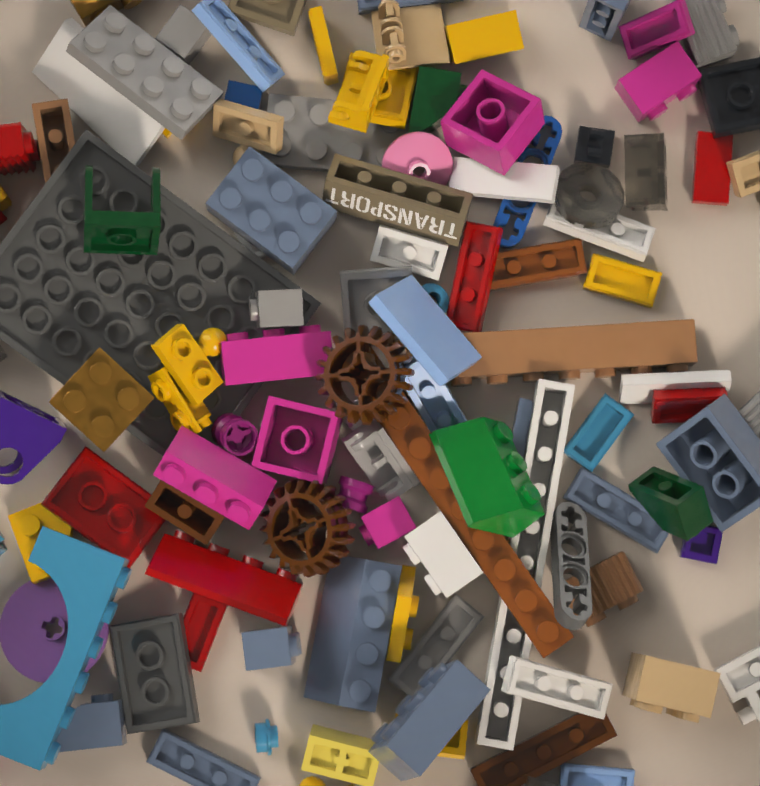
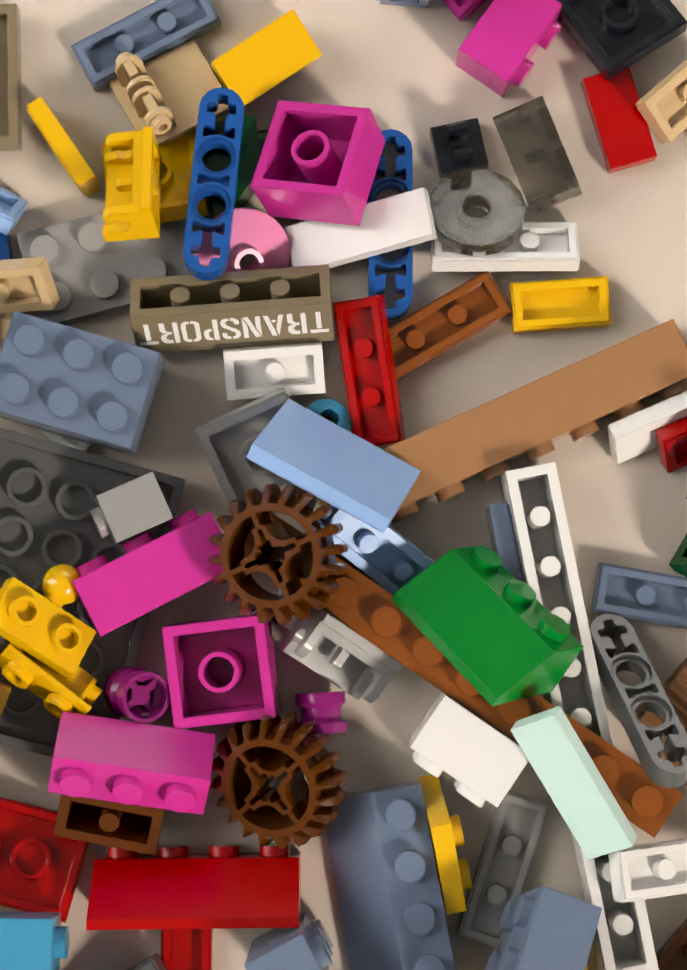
camera: 20 degrees left, 0 degrees up
(386, 523) = (378, 734): dark pink brick -> none
(413, 108) = (211, 183): none -> blue beam
(503, 601) = (574, 783): none -> light aqua tile
(598, 432) = (604, 510): dark azure tile -> none

